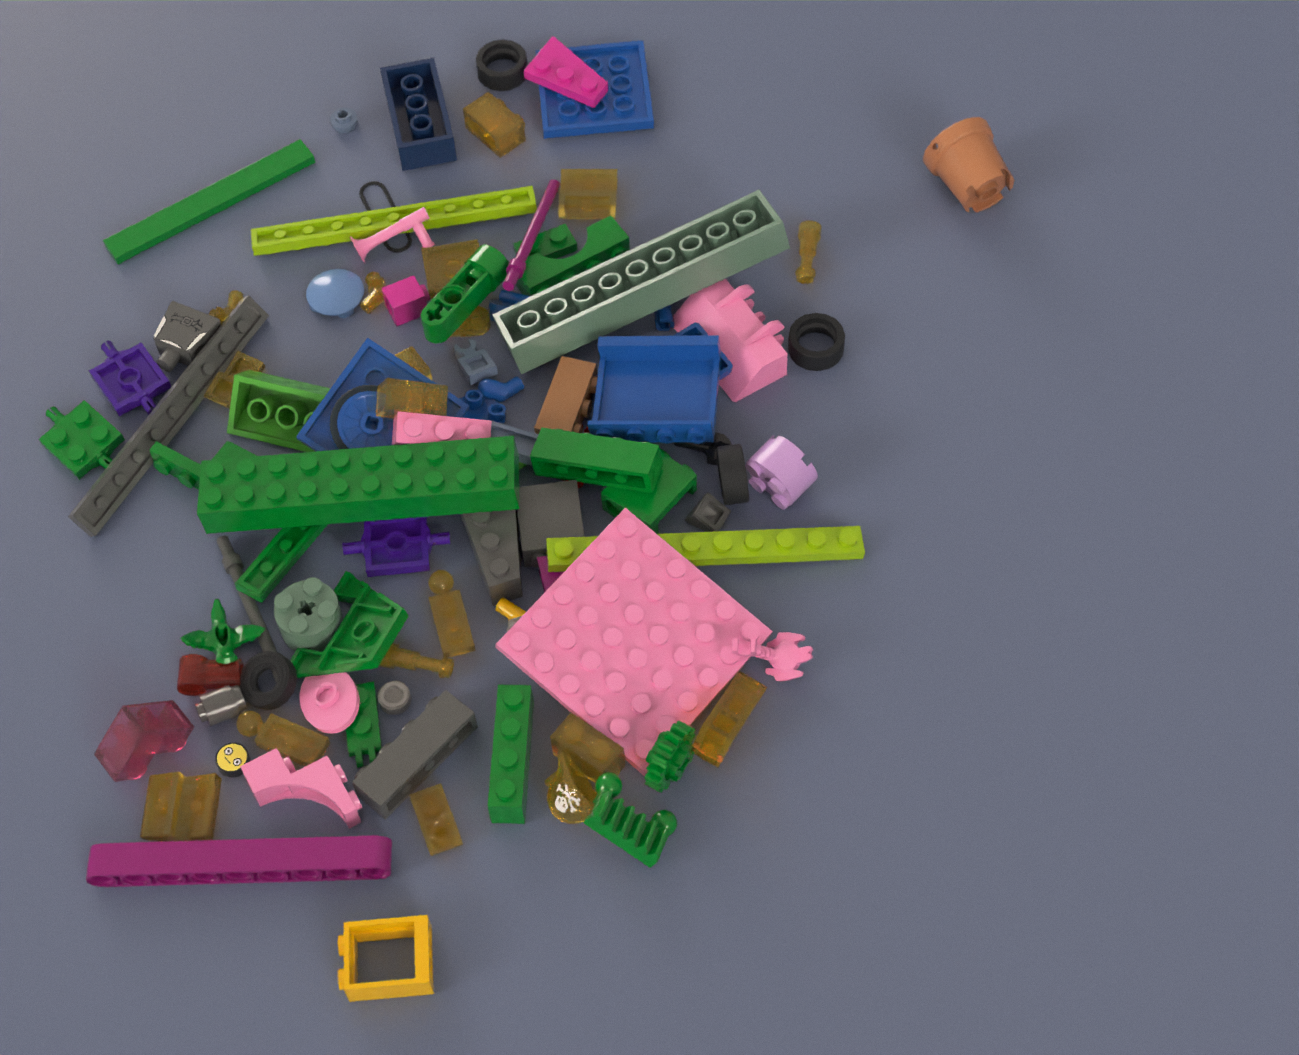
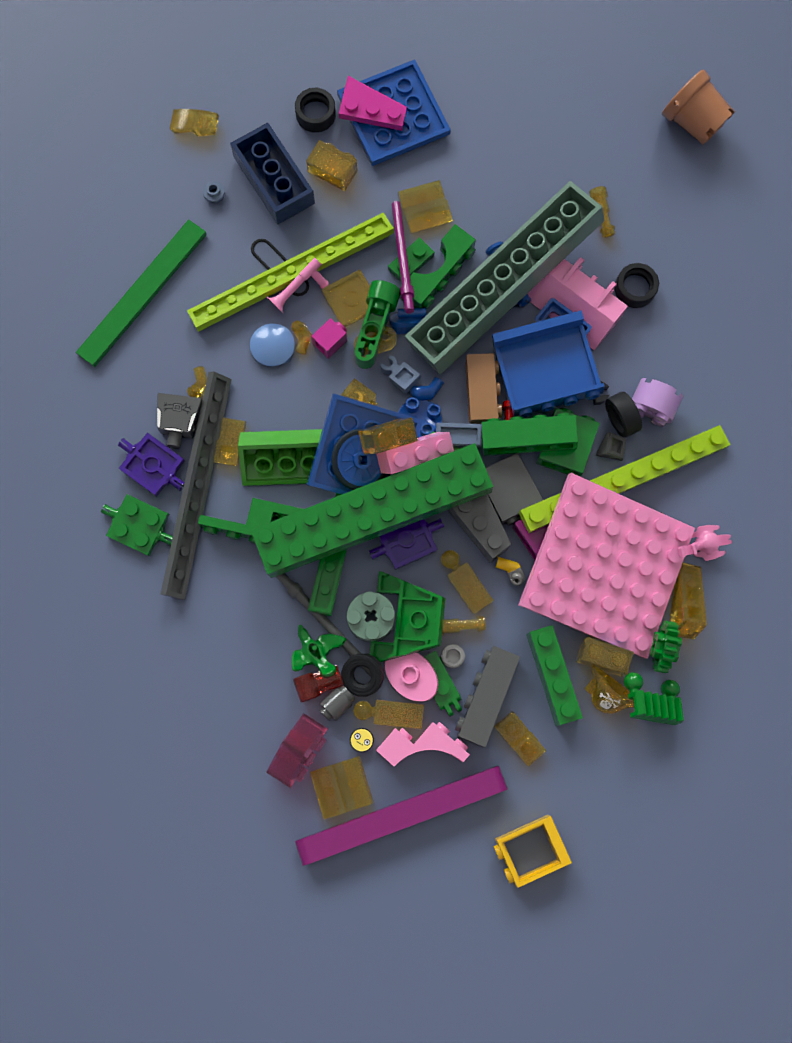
camera: 25 degrees left, 20 degrees up
(358, 44) = (193, 120): none -> clear yellow slope

